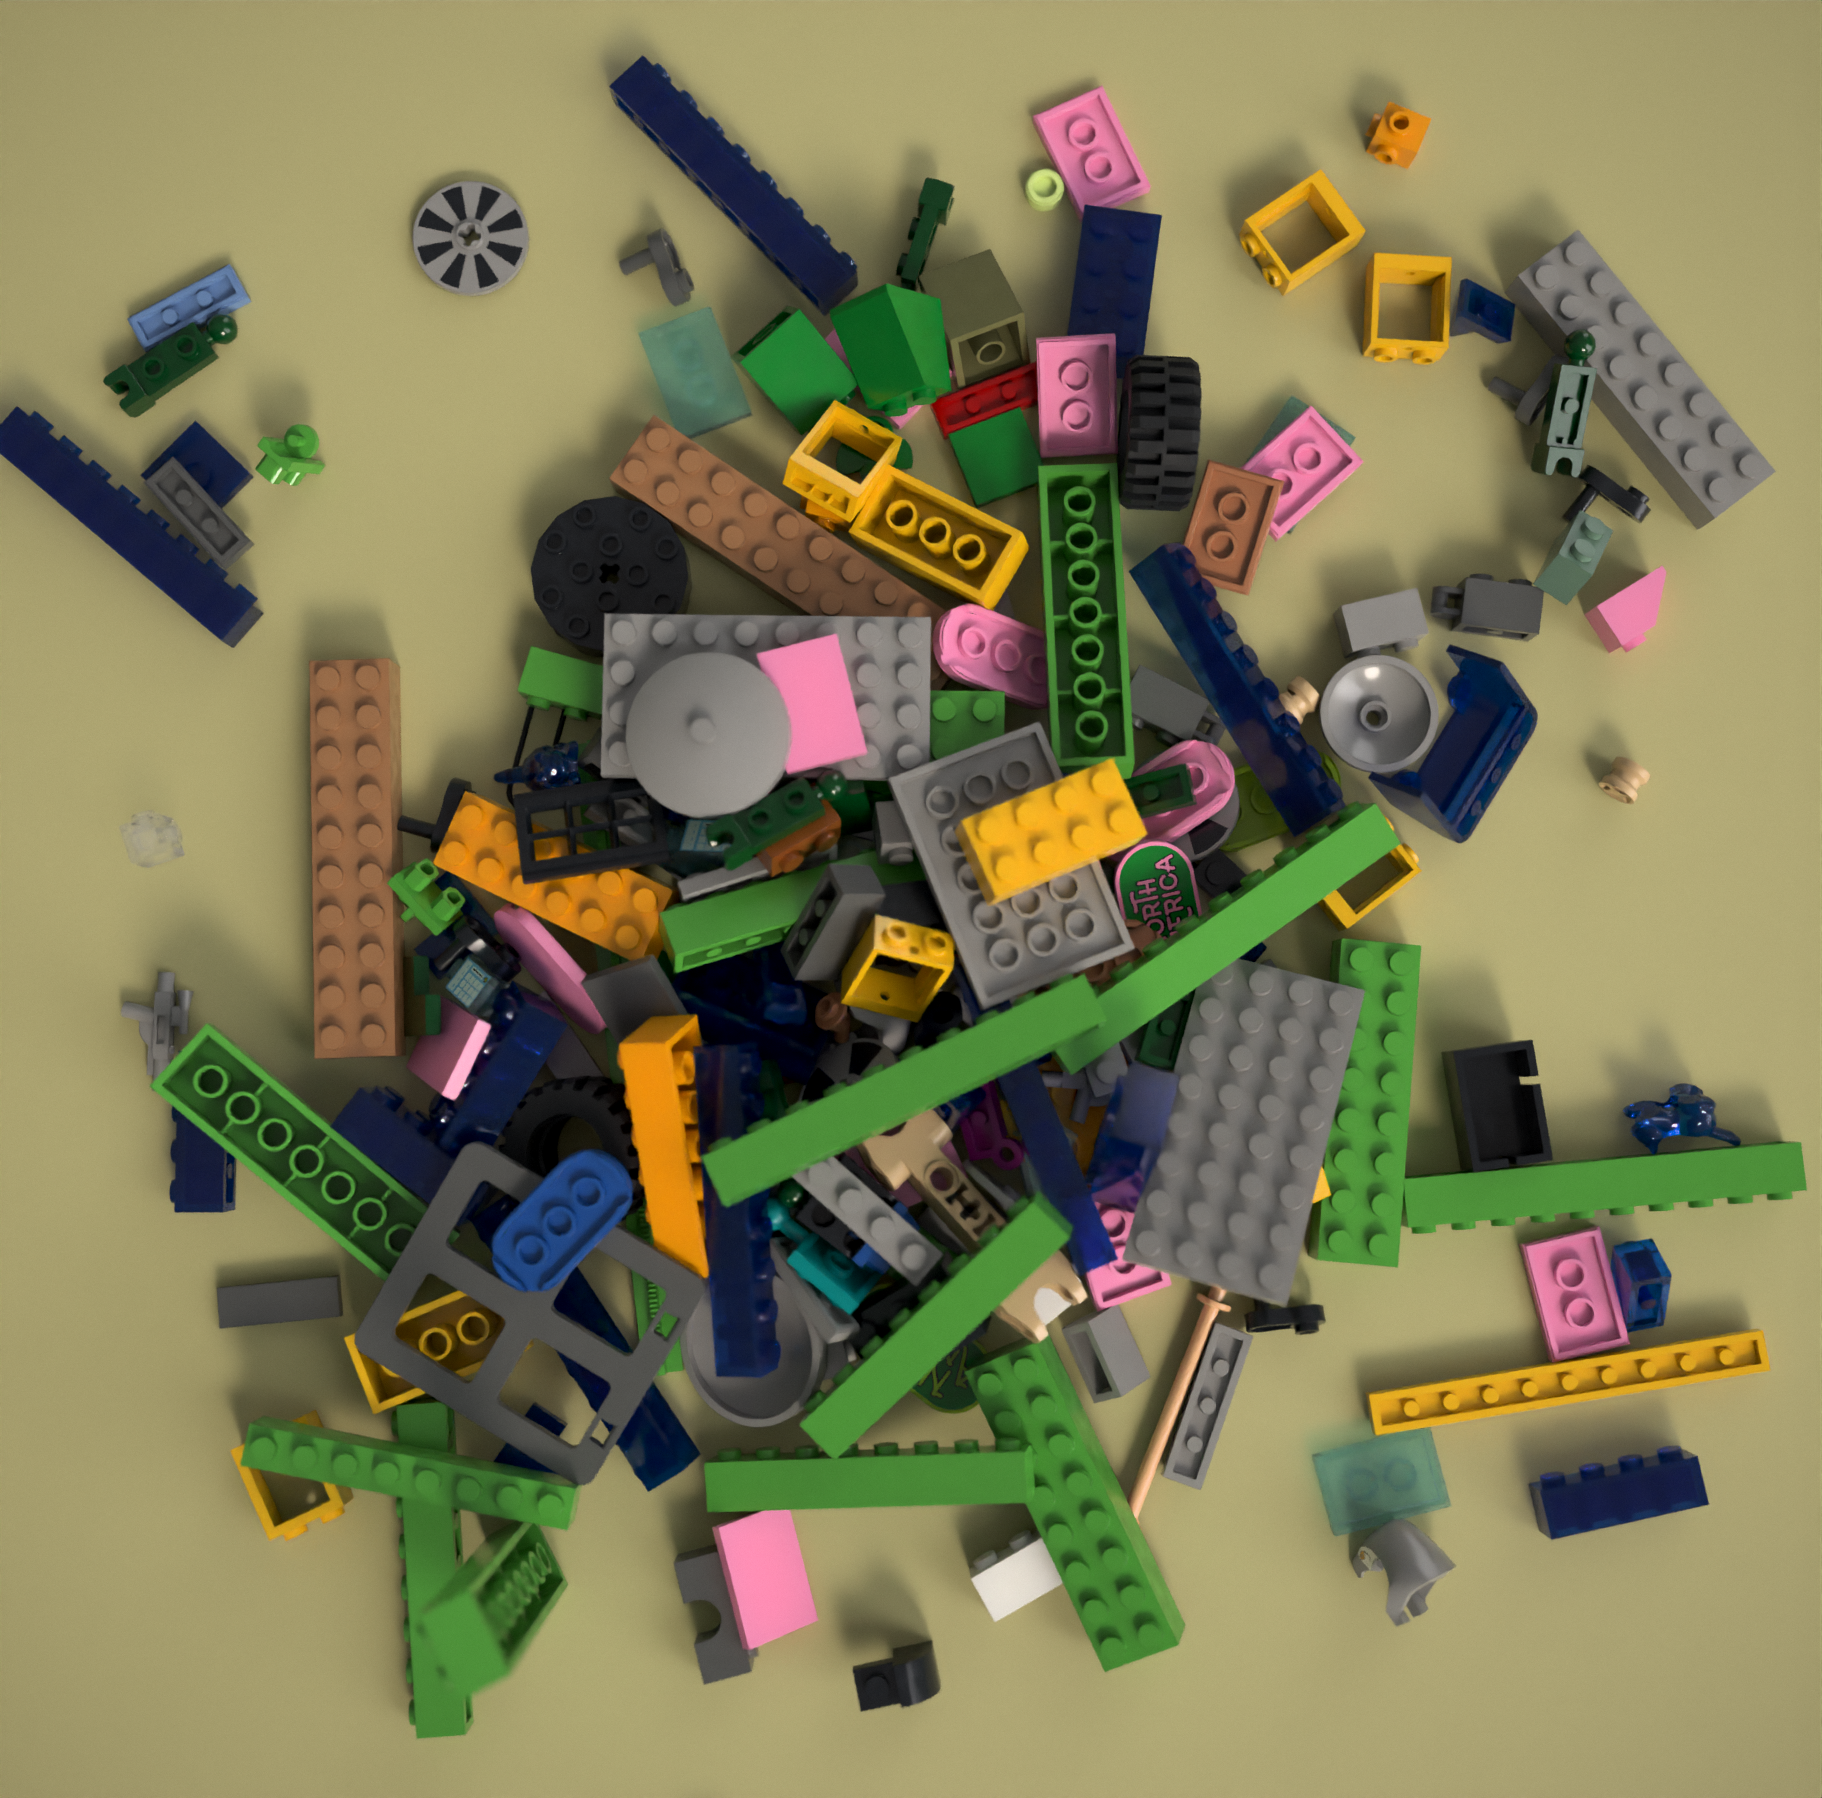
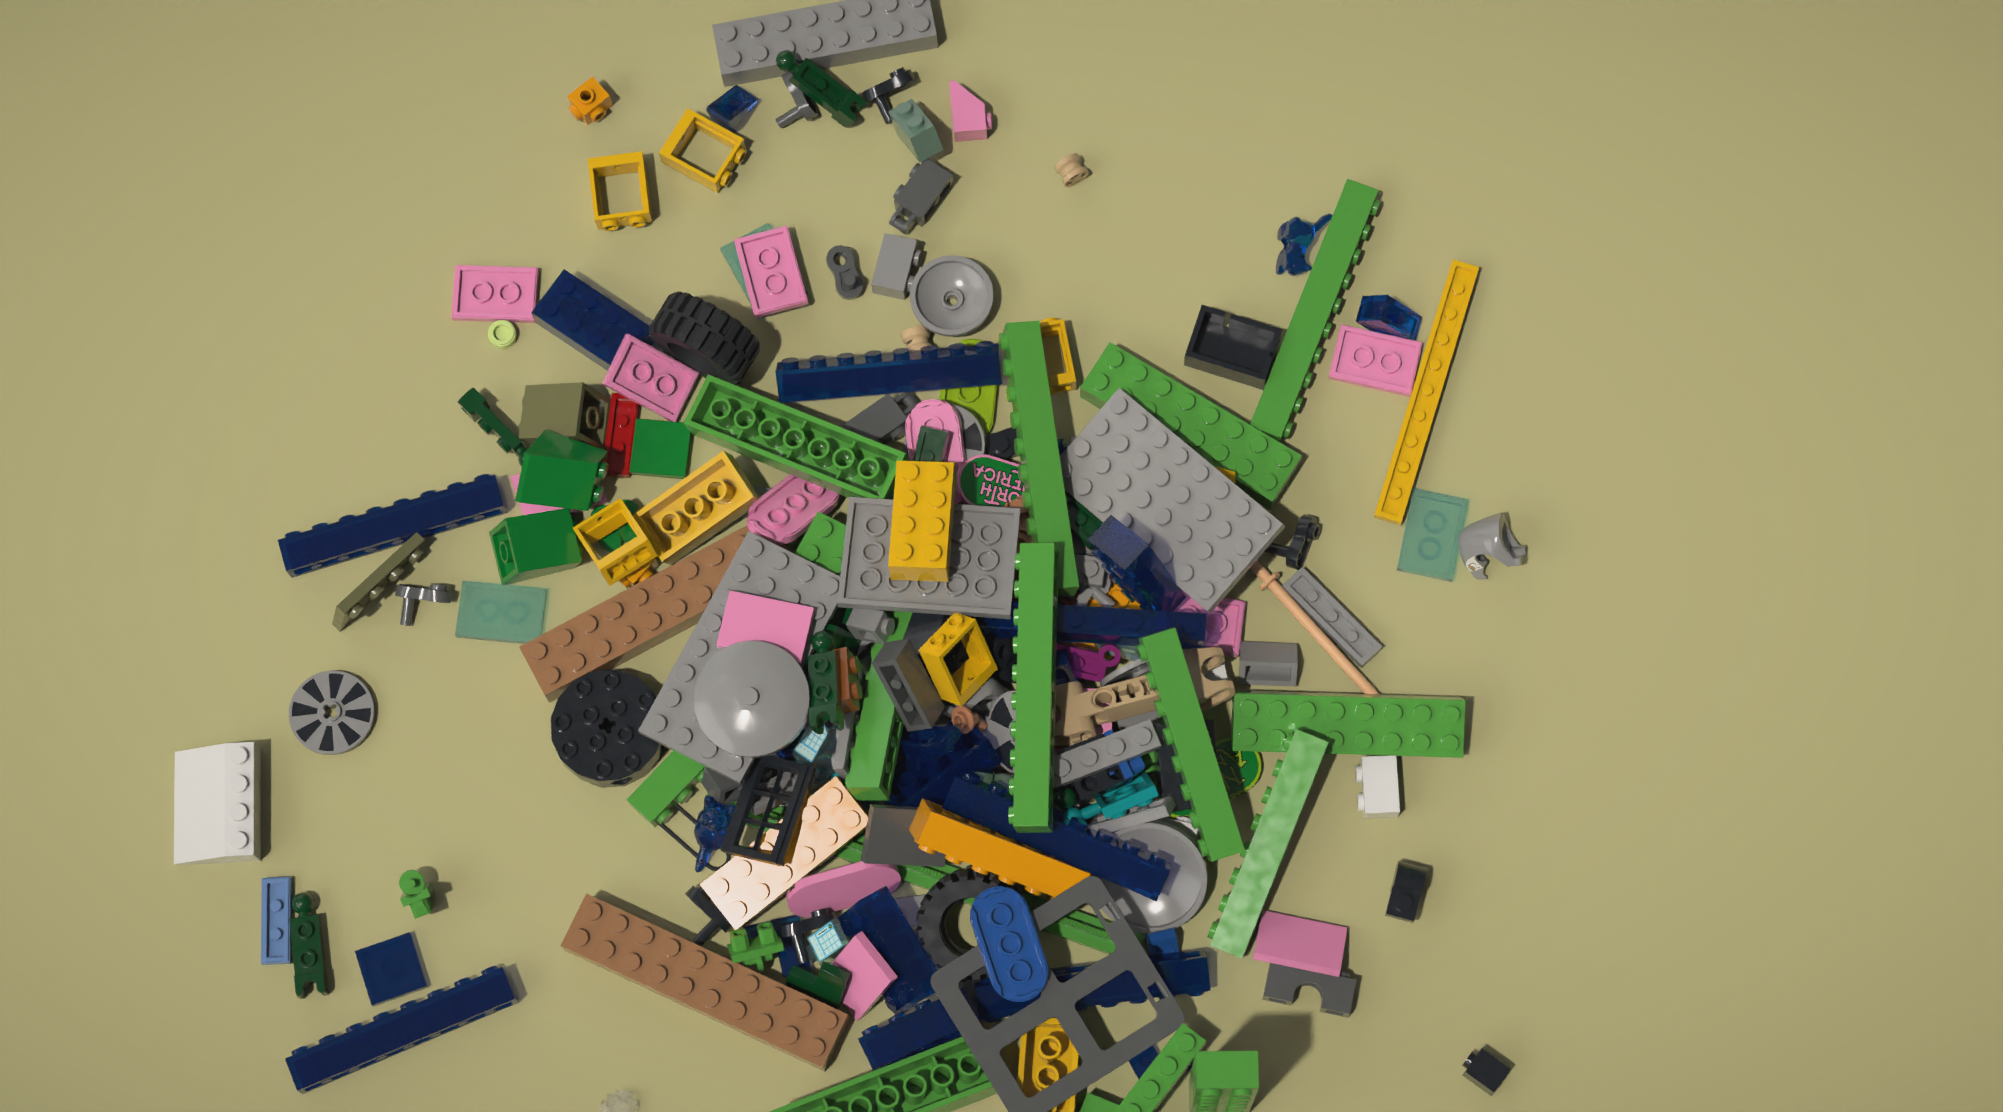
camera: 55 degrees left, 10 degrees down
(199, 513) = (419, 976): dark grey tile -> none
(292, 167) = (217, 804): none -> white slope
(653, 202) = (375, 583): none -> olive wing
(682, 1398) = (1162, 942): none -> blue plate
(1231, 524) = (784, 325): nougat tile -> none
(1332, 574) = (847, 280): none -> dark grey piece
(1472, 752) = (1005, 252): clear blue windscreen -> none
(1618, 1492) = (1509, 396): clear blue brick -> none

